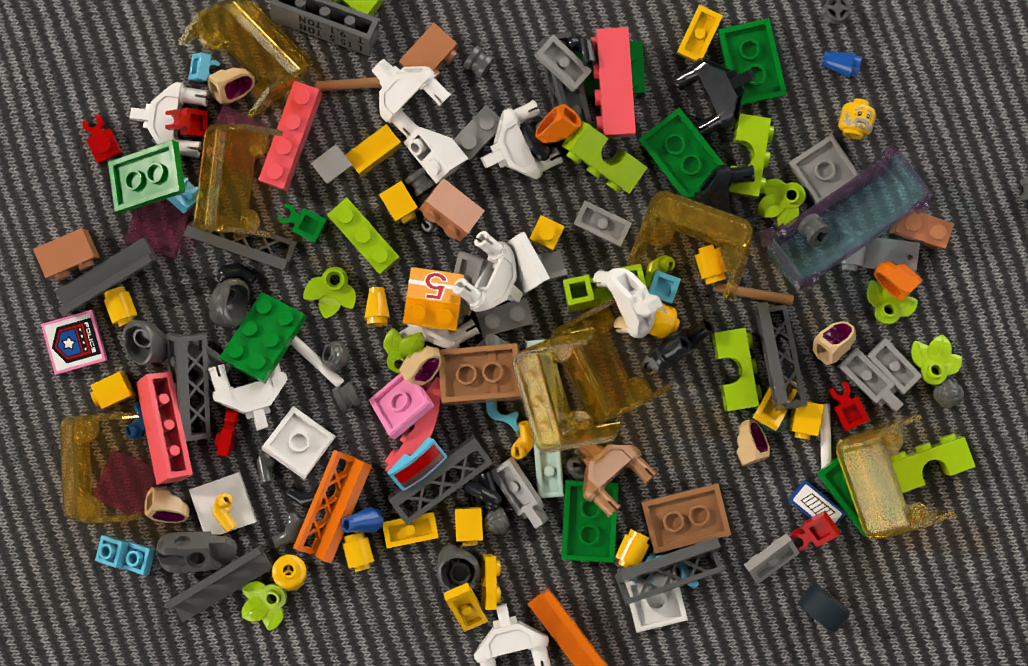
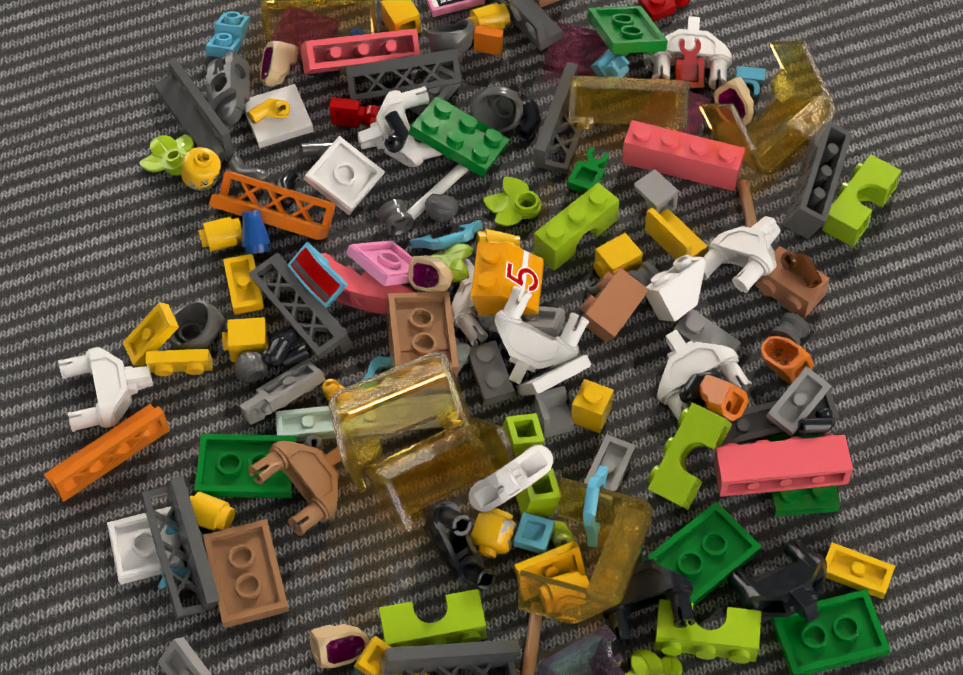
camera: 90 degrees right, 30 degrees down
(146, 307) = (488, 40): none -> orange tile
(267, 393) = (398, 134): none -> black arm
(380, 356) = (466, 233): none -> medium azure helmet
(424, 43) = (801, 265): none -> reddish brown arm
(506, 69) = (785, 357): none -> rock
(658, 240) = (590, 505): none -> medium azure helmet
(687, 267) = (554, 562): none -> yellow plate

